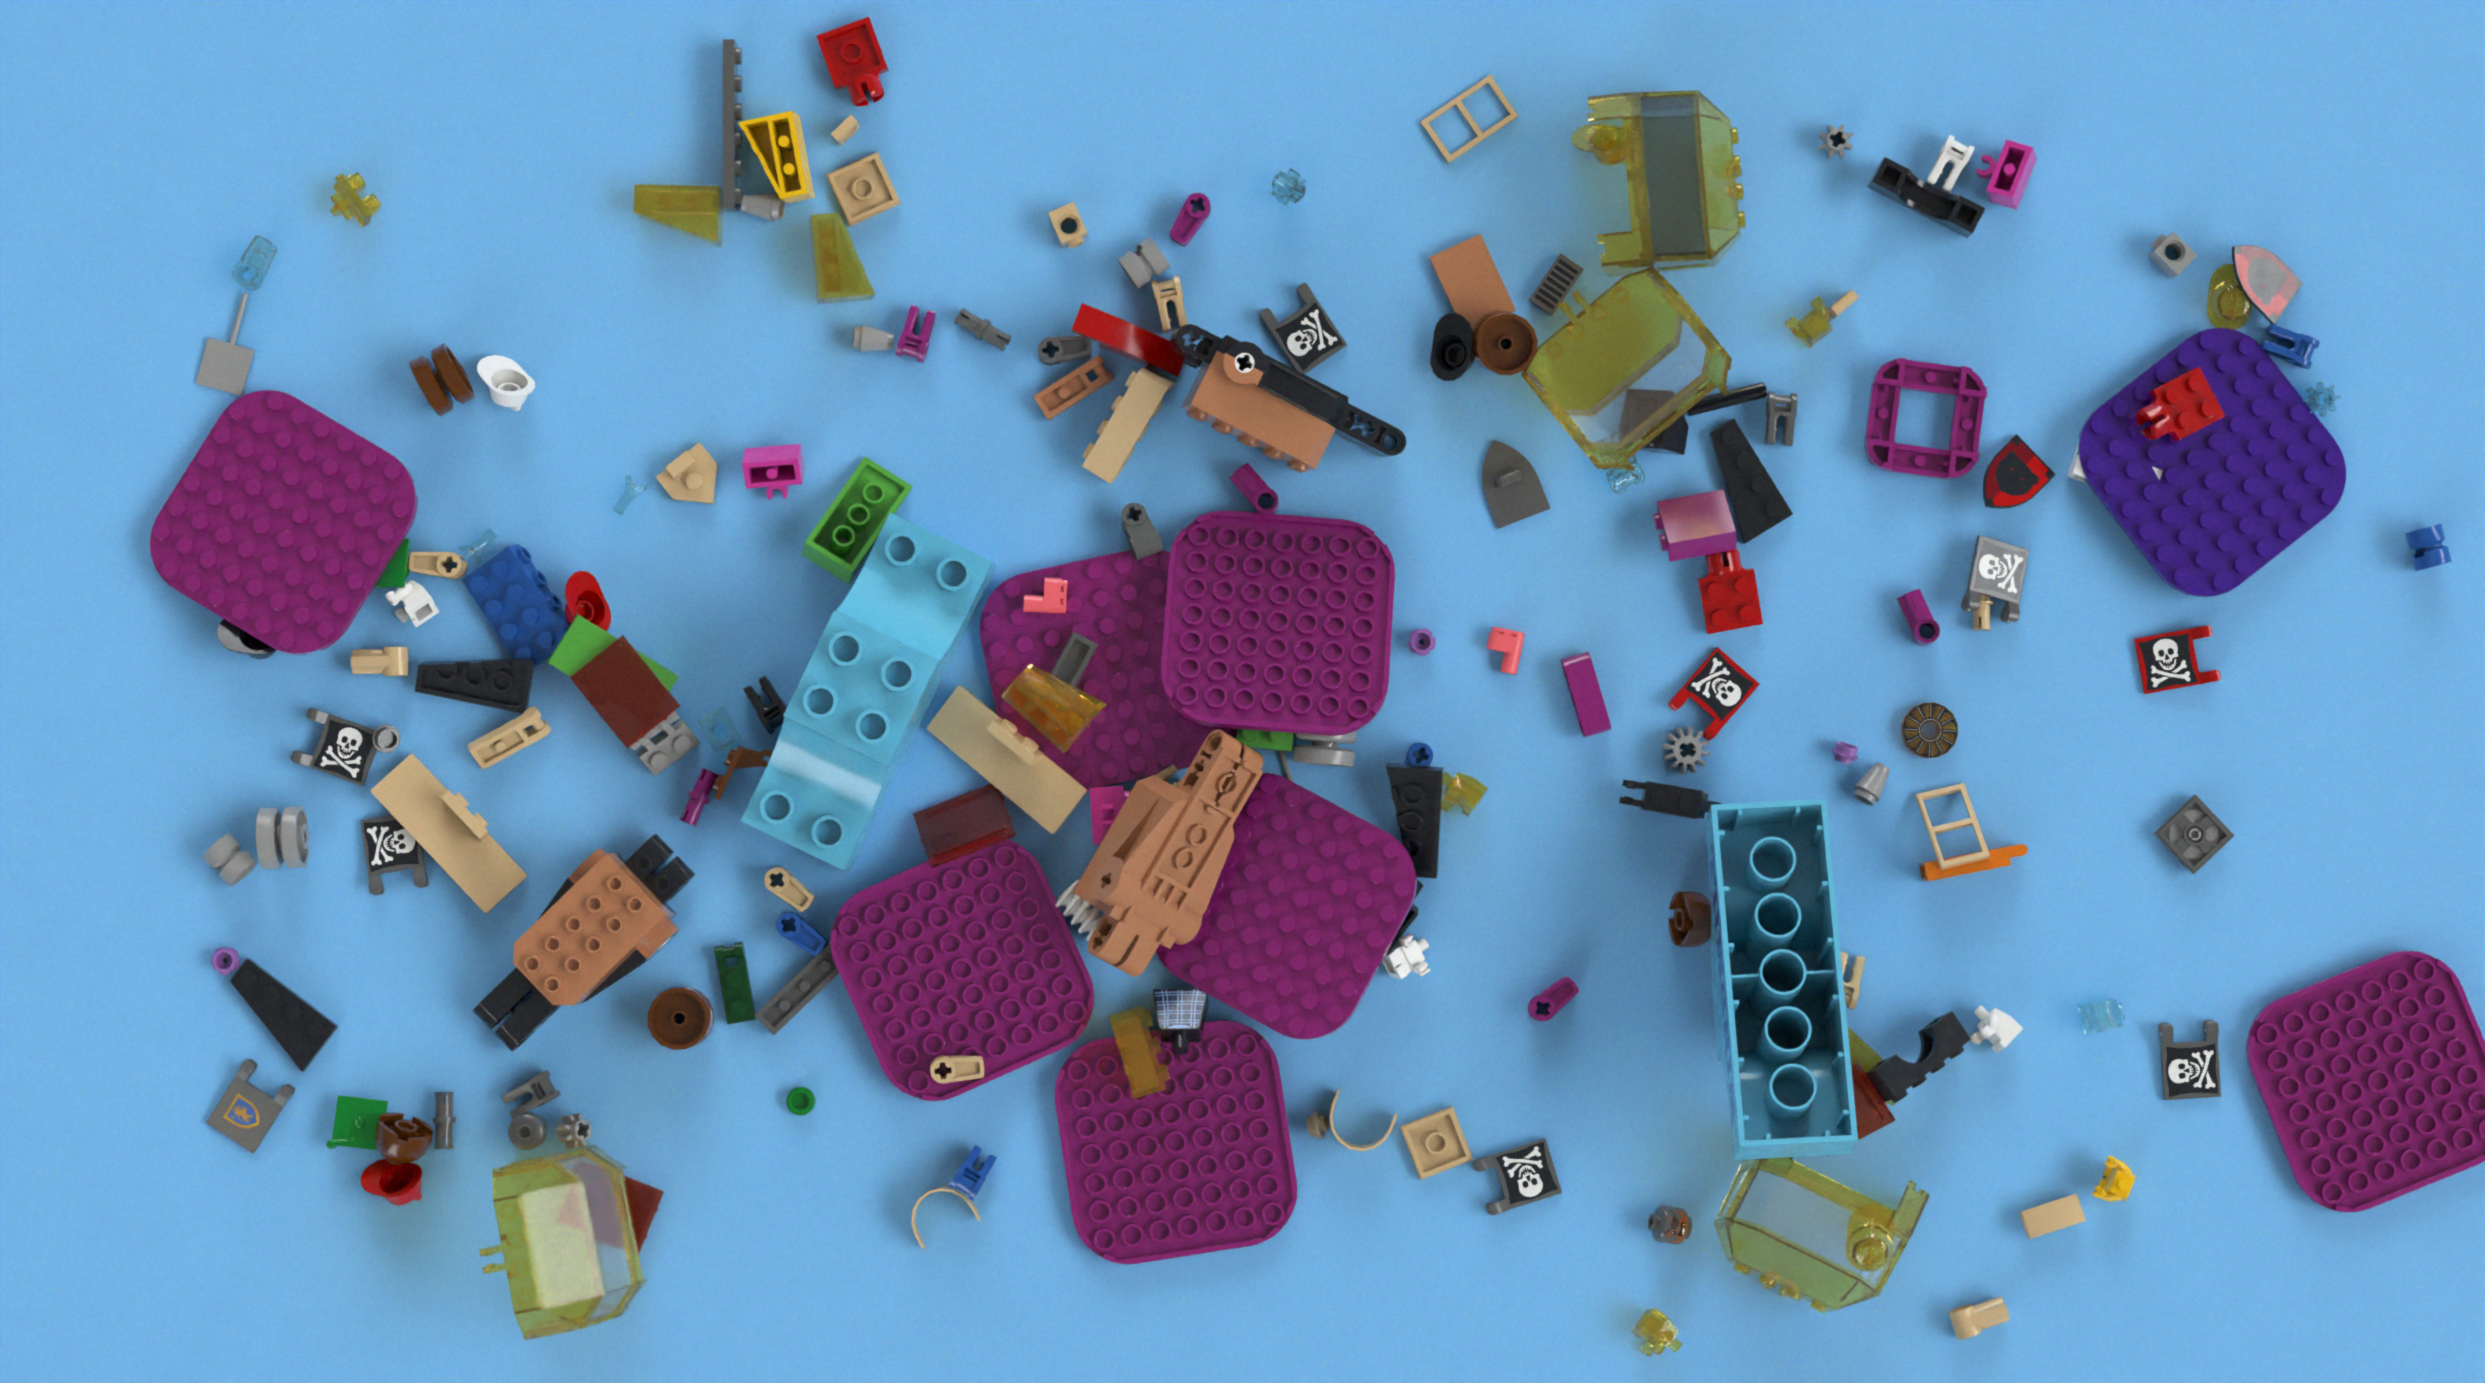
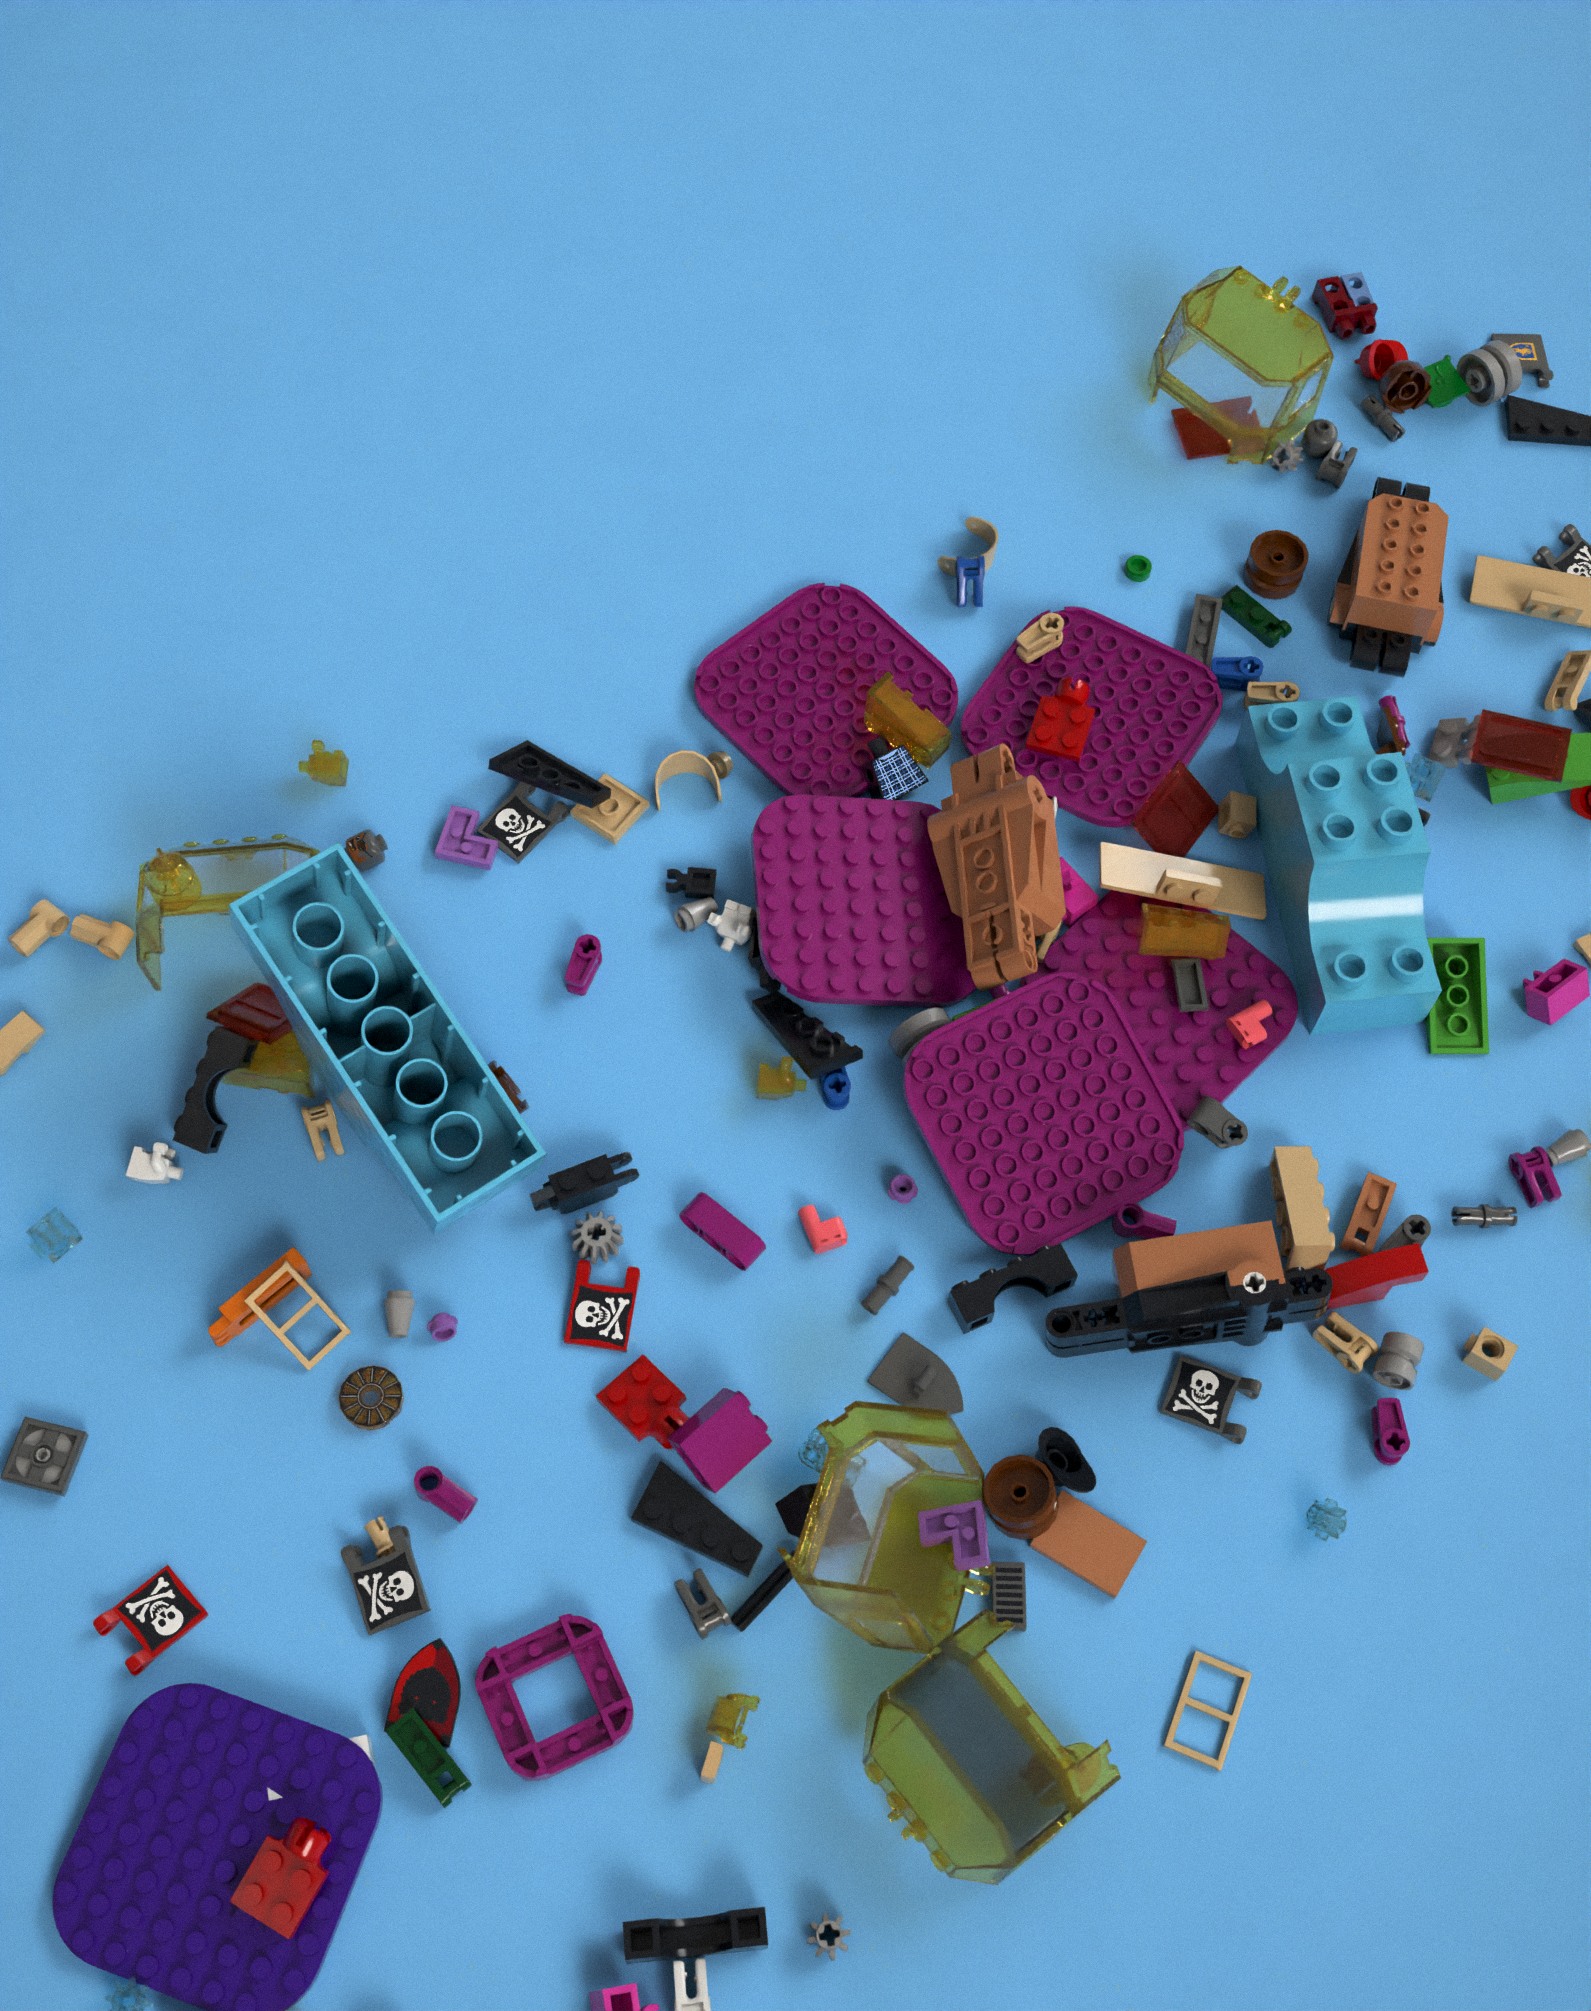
camera: 145 degrees right, 25 degrees down
(311, 1097) = (1490, 372): none -> light grey wheel
(377, 1262) = (1346, 306): none -> dark red hips
(910, 792) = (1237, 815): none -> tan brick
(1000, 970) = (1062, 721): none -> red plate
(1409, 1020) = (696, 883): none -> black plate
(1429, 513) = (1045, 1271): none -> black arch
(1429, 991) = (693, 914): none -> light grey cone
(1473, 1205) = (547, 772): none -> black wing
(1487, 570) = (887, 1285): none -> dark grey pin
(1561, 344) = (962, 1525): none -> medium lavender plate
(1586, 1187) = (459, 843): none -> medium lavender plate
(1926, 1272) = (108, 938): none -> tan piece
(2036, 434) = (427, 1756): none -> dark green plate

